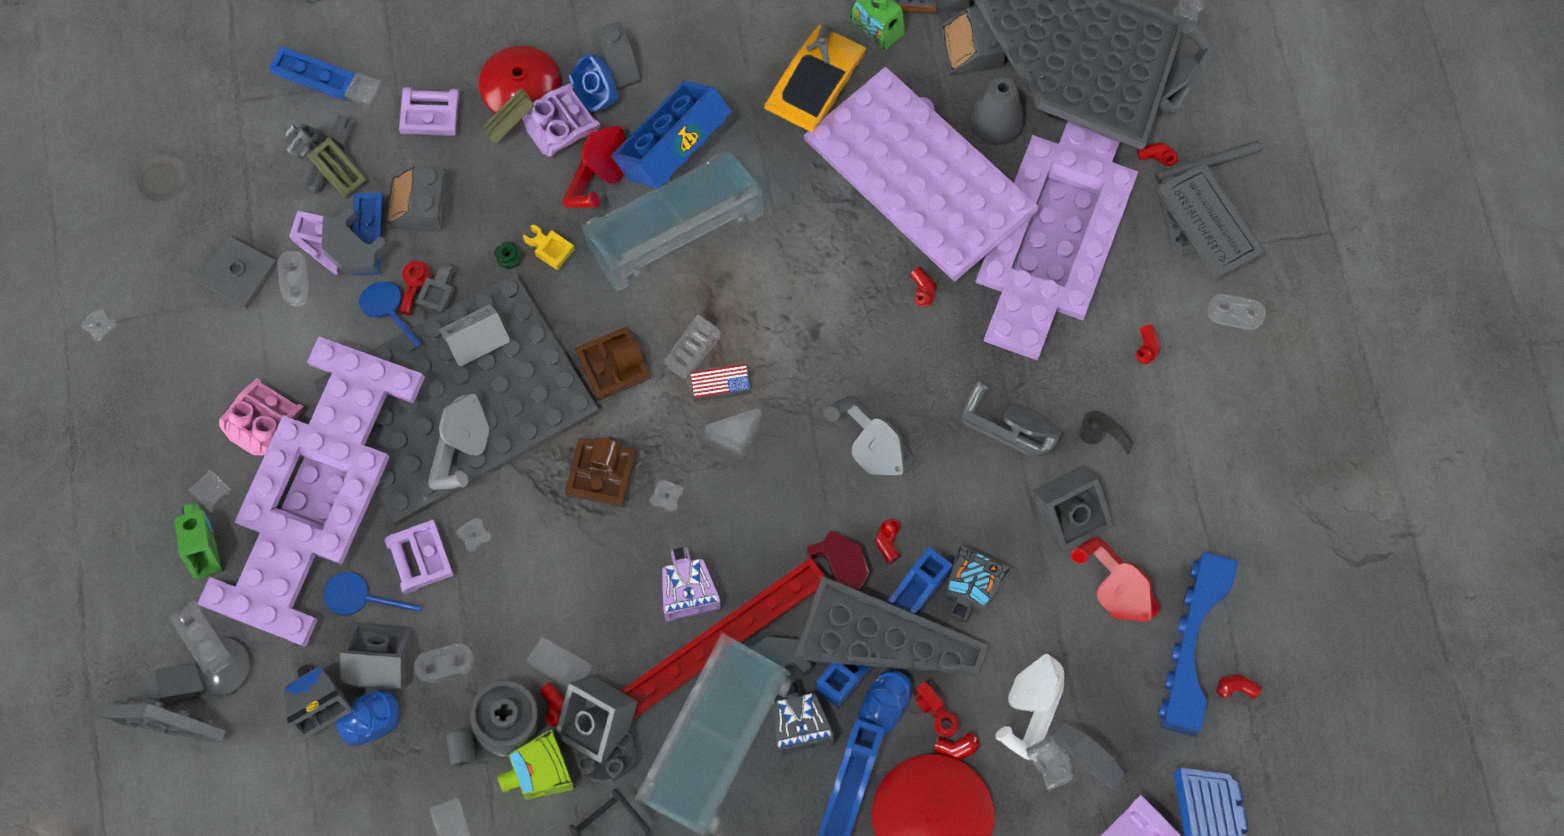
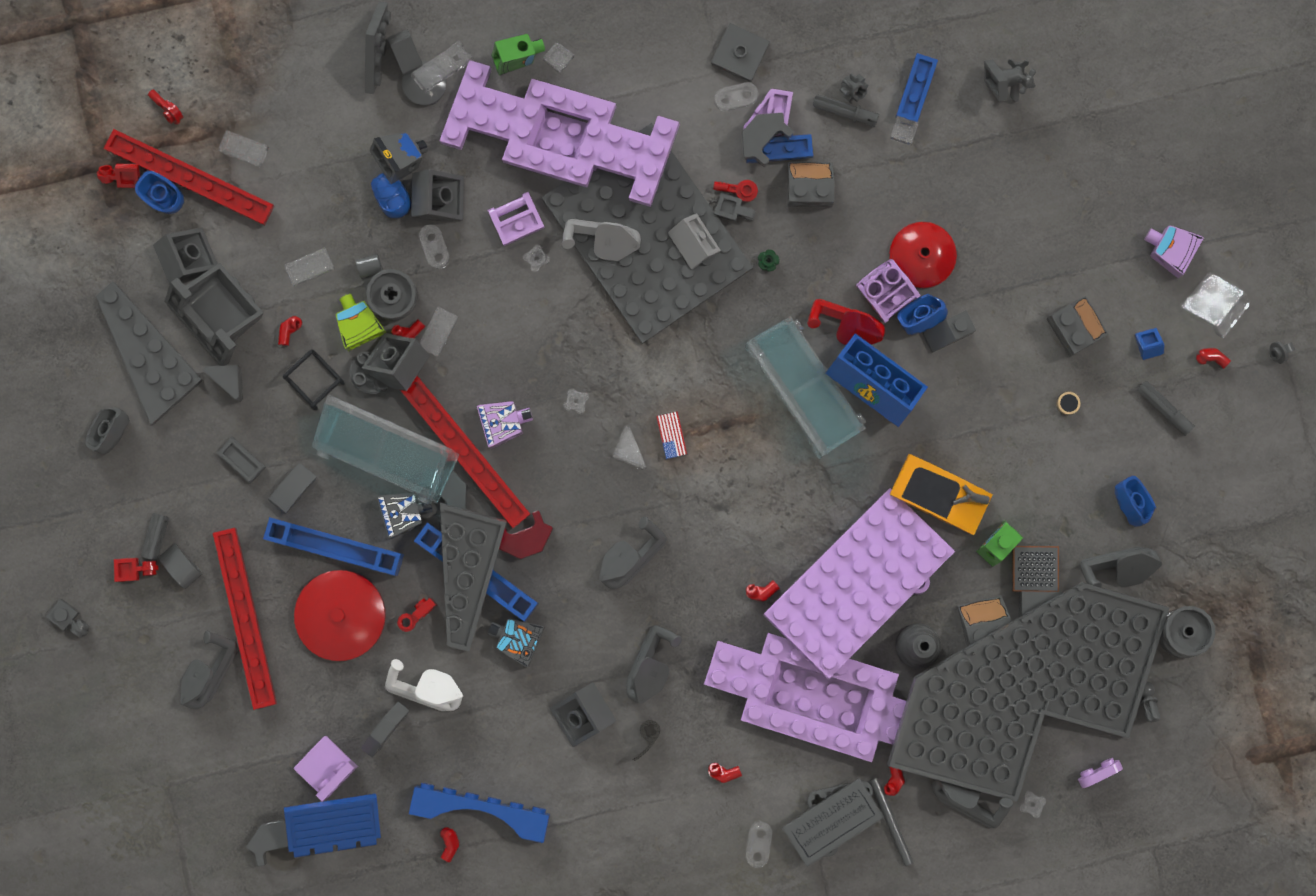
camera: 90 degrees right, 15 degrees up
(255, 417) = (619, 85): bright pink slope -> none
(329, 174) = (844, 104): olive tile -> none
(348, 594) = (486, 170): blue piece -> none
(382, 300) = (723, 166): blue piece -> none
(429, 118) = (883, 186): lavender plate -> none
(508, 116) = (886, 248): olive tile -> none
(550, 248) = (775, 294): yellow plate -> none
(600, 471) = (590, 349): reddish brown plate -> none
(613, 363) = (681, 350): reddish brown plate -> none
(704, 326) = (701, 422): clear slope -> none
(885, 539) = (550, 570): red arm -> none
(886, 700) = (422, 576): blue piece -> none
(960, 749) = (390, 634): red arm -> none
(1051, 762) = (380, 702): clear bracket -> none
(1126, 590) = (518, 758): piece -> none

